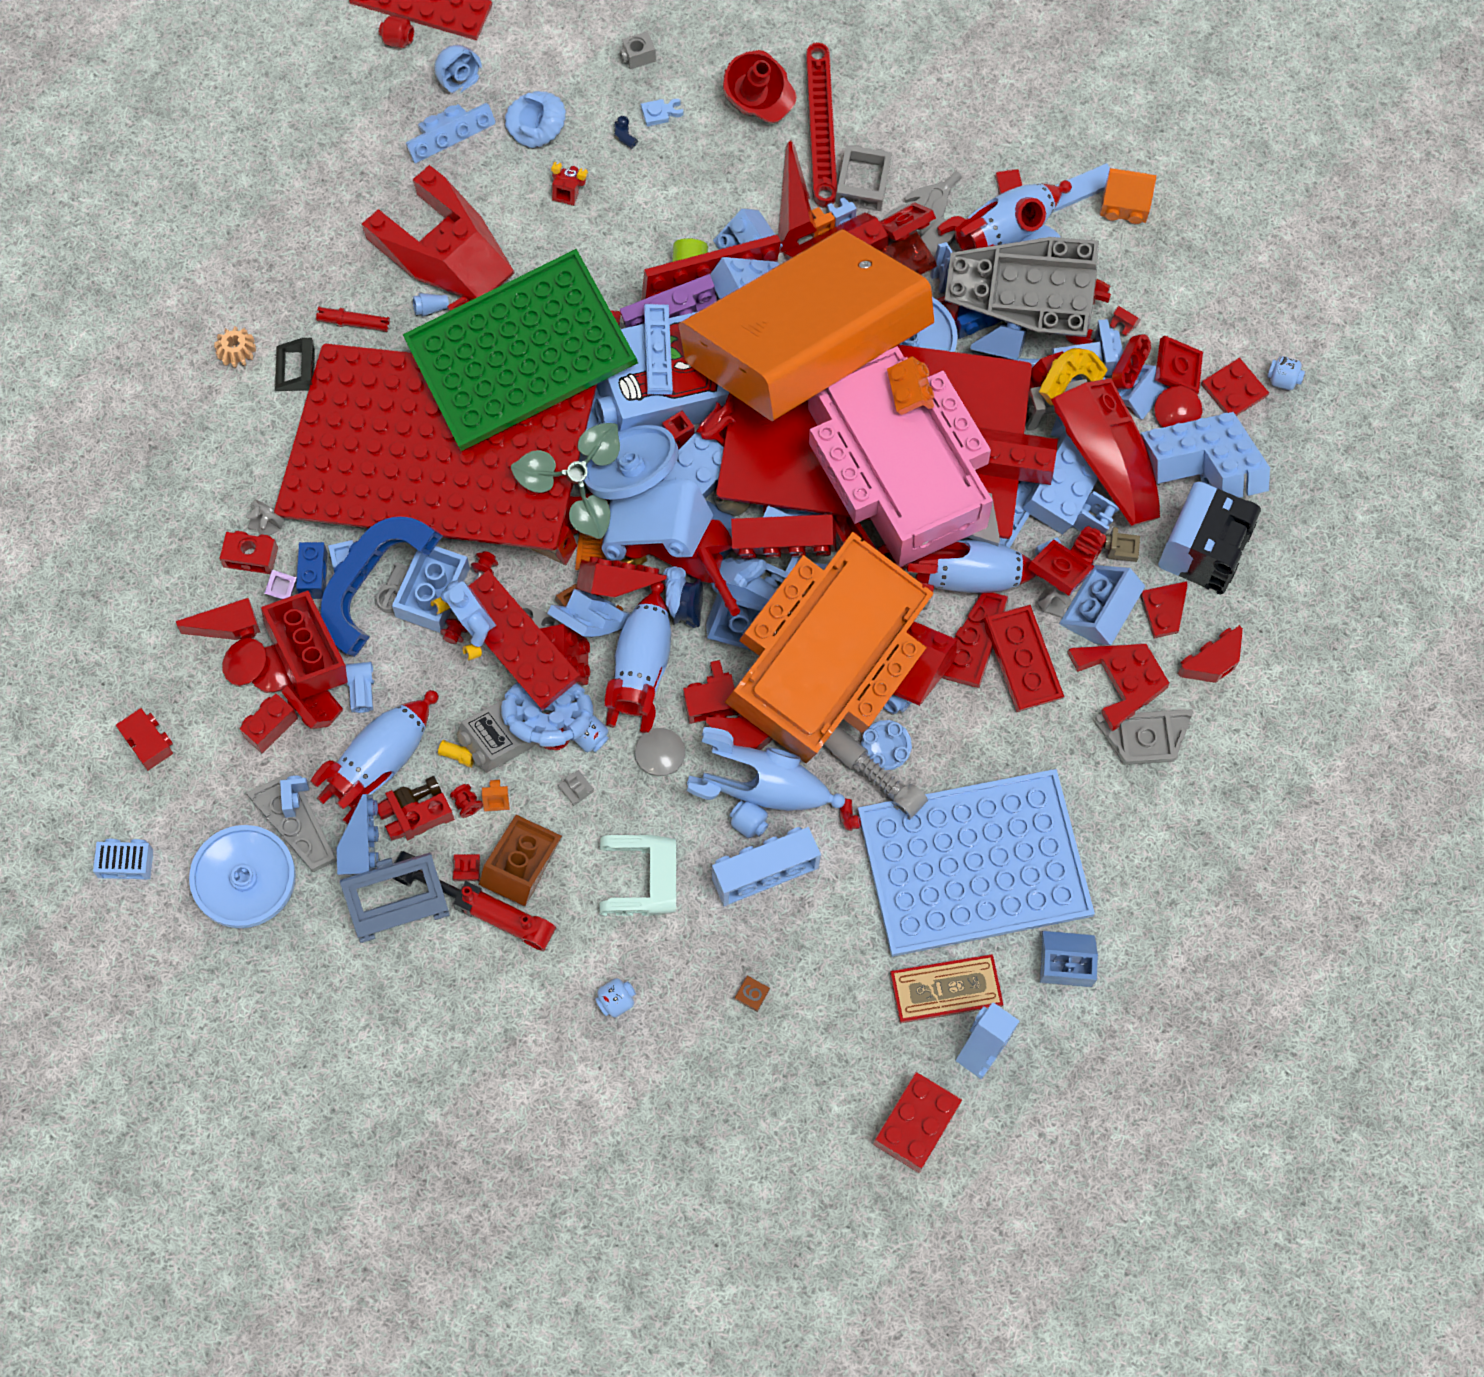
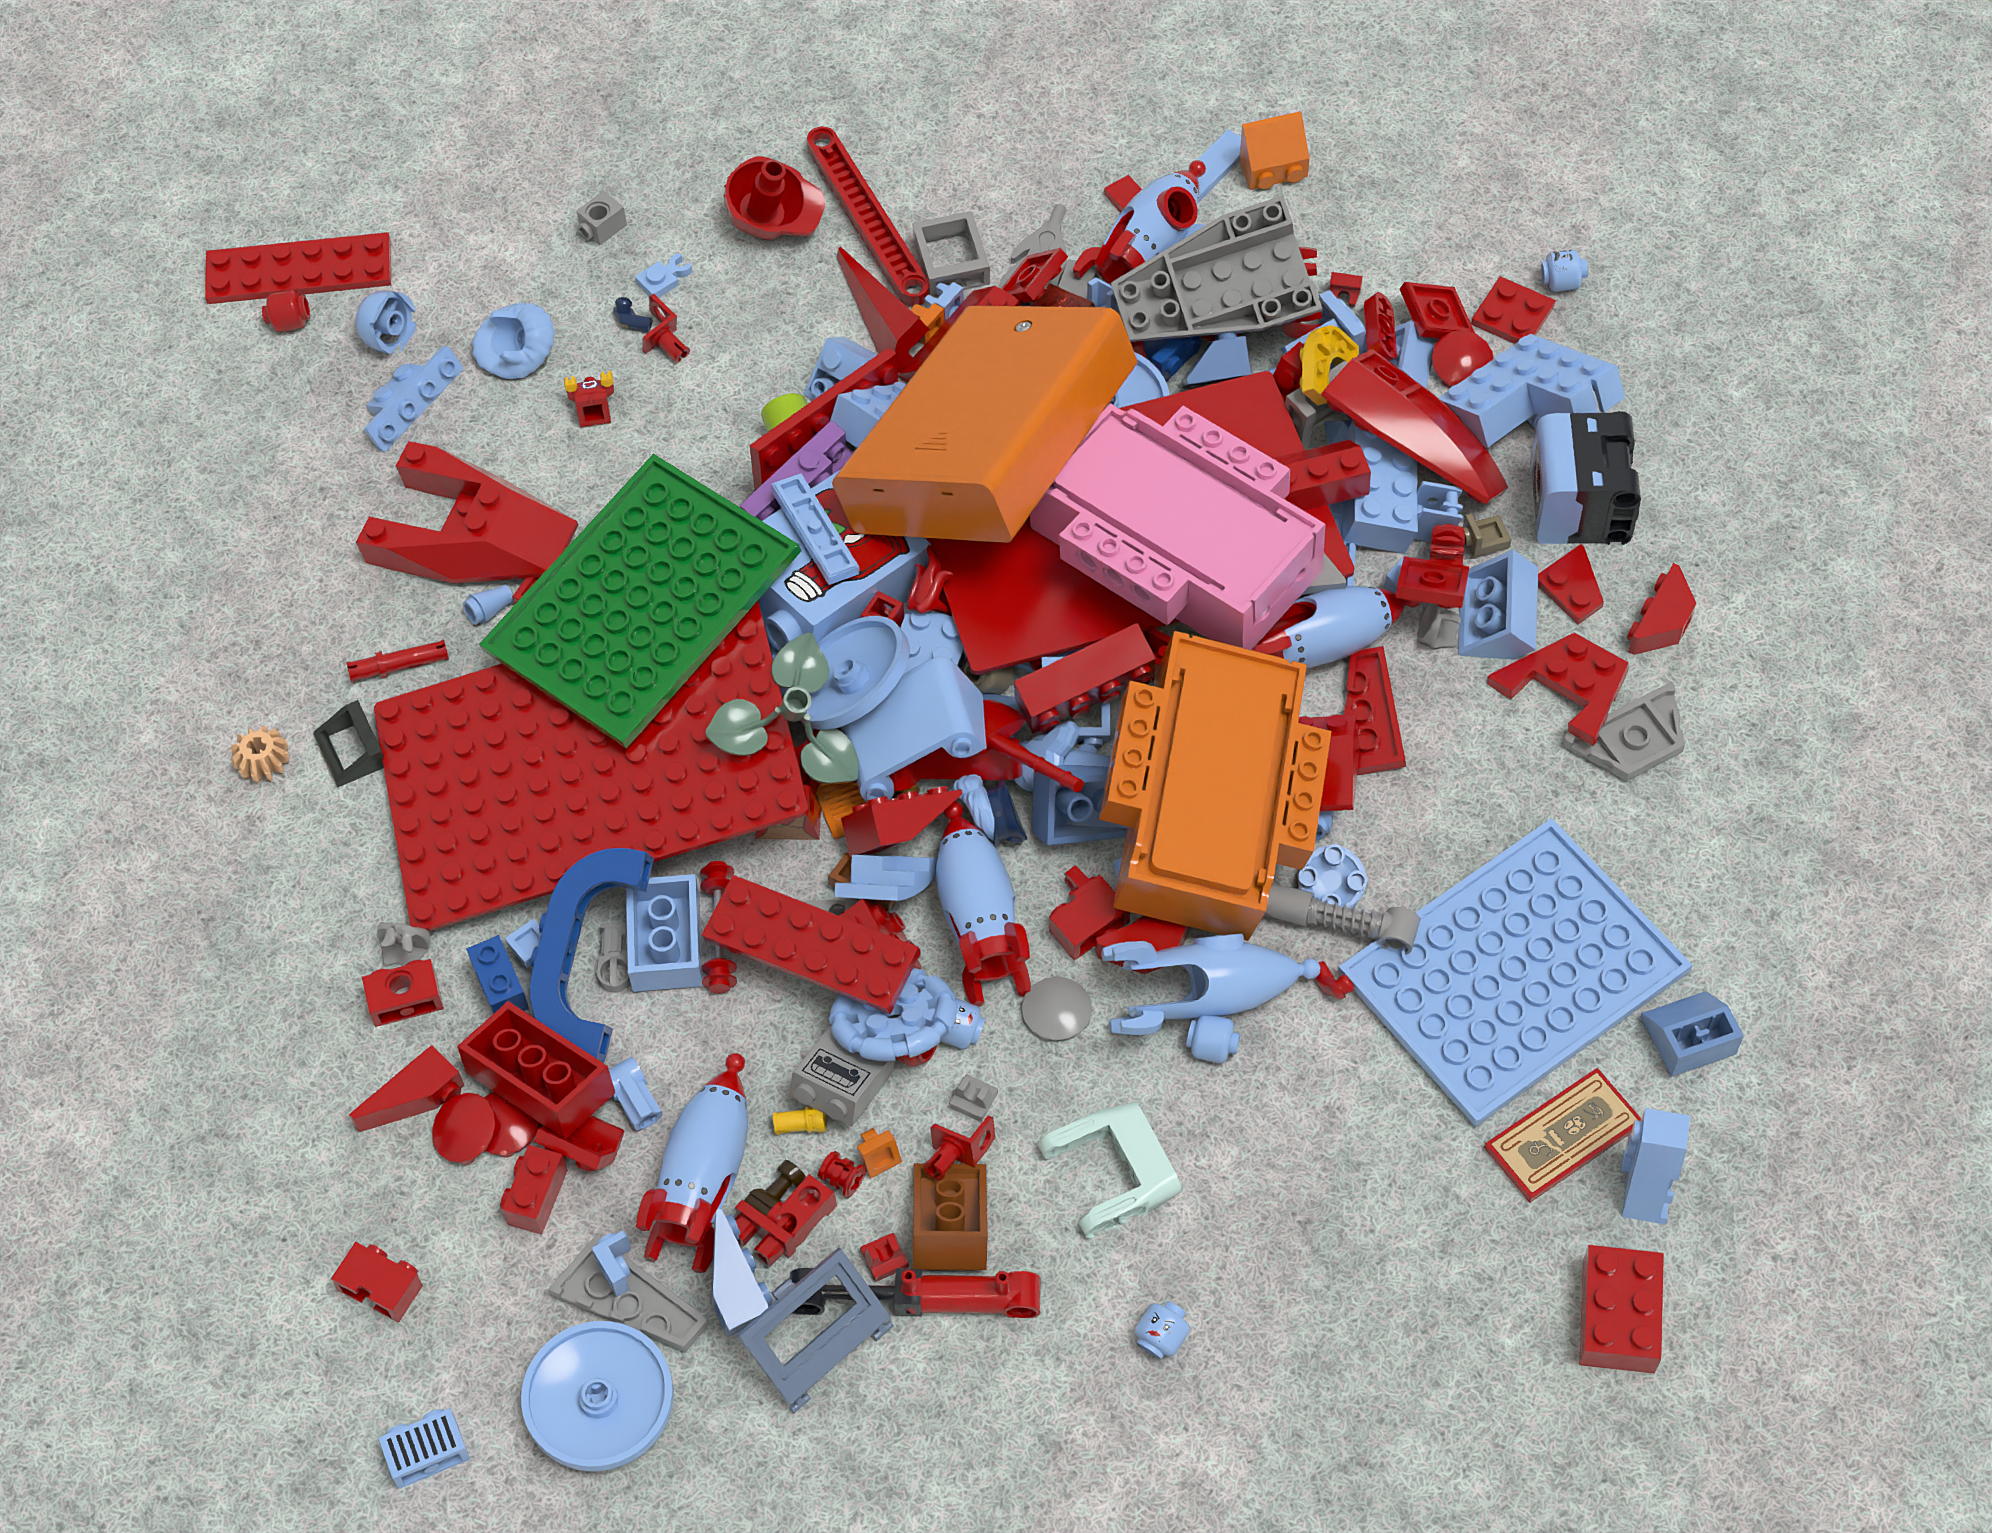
camera: 20 degrees left, 10 degrees down
(280, 585) = (465, 1012): brick -> none
(469, 612) = (737, 929): light blue torso -> none
(545, 817) = (954, 1146): none -> red bracket
(638, 155) = (663, 334): none -> red bracket
(752, 993) = (1329, 1248): dark orange tile -> none
(765, 866) = (1266, 1082): light blue brick -> none
(910, 385) = (1154, 435): orange bracket -> none
(1023, 658) = (1440, 708): red tile -> none

